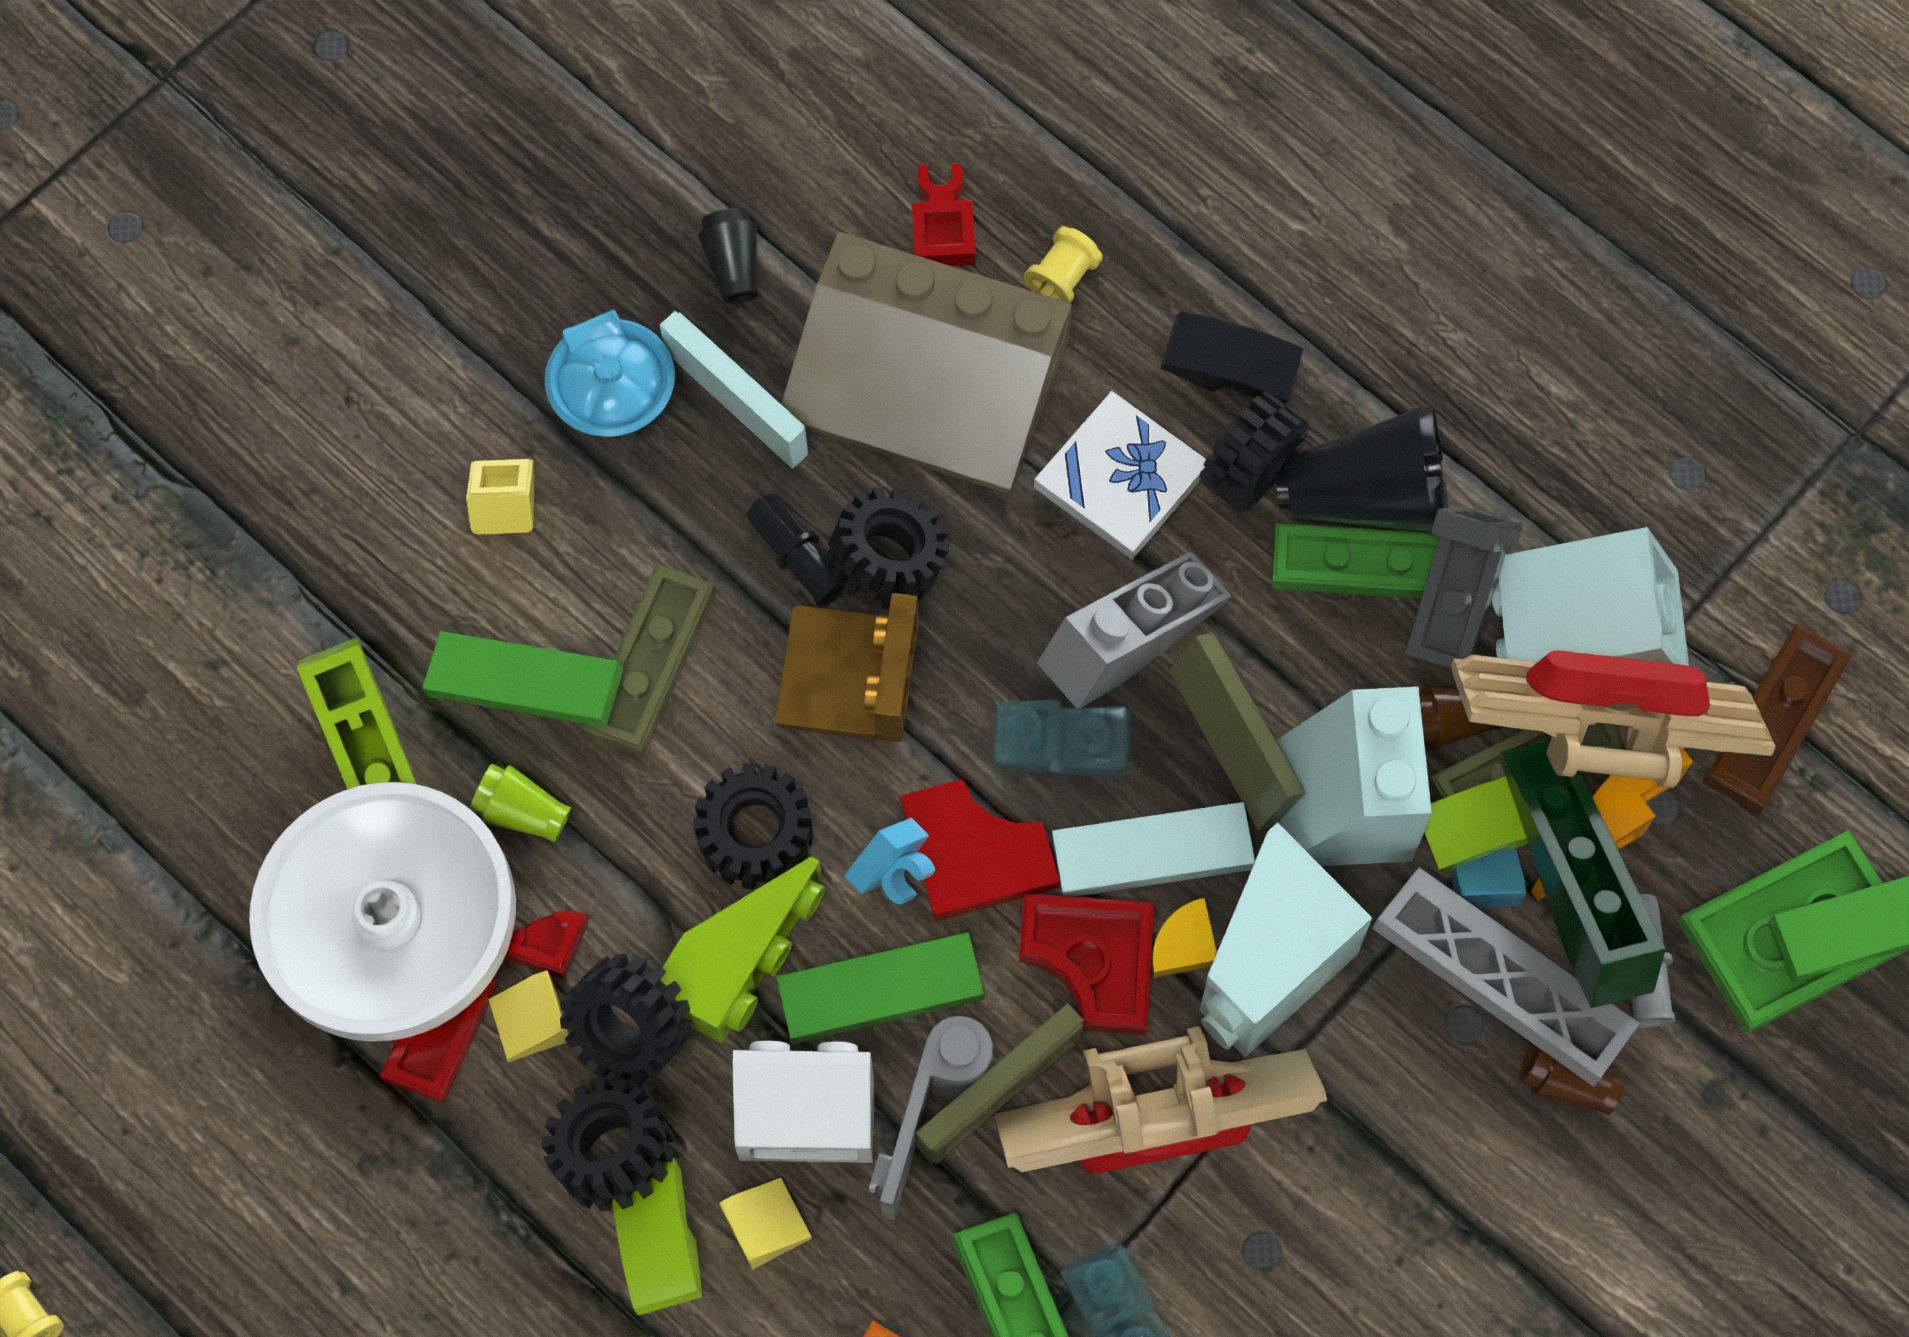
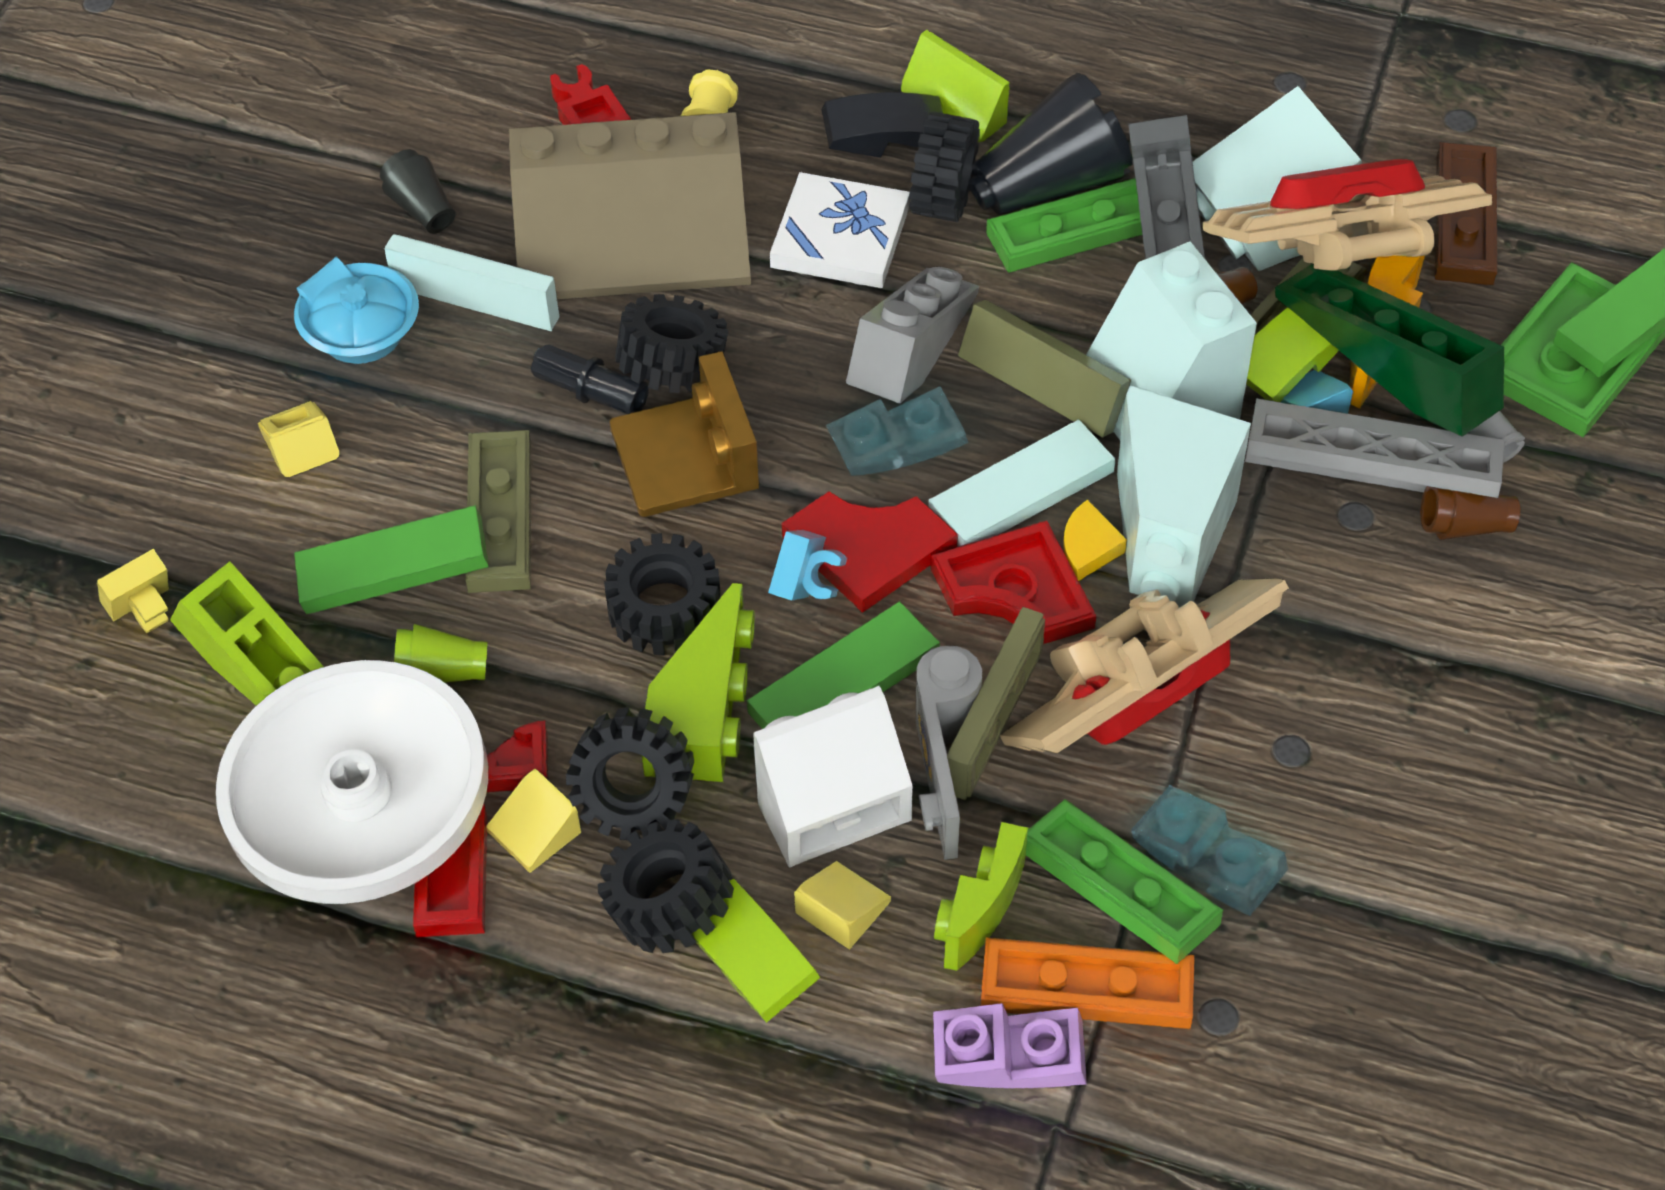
camera: 25 degrees left, 15 degrees down
(283, 615) = (137, 589): none -> light yellow tile
(871, 1293) = (983, 899): none -> lime slope
(1331, 353) = (959, 81): none -> lime slope

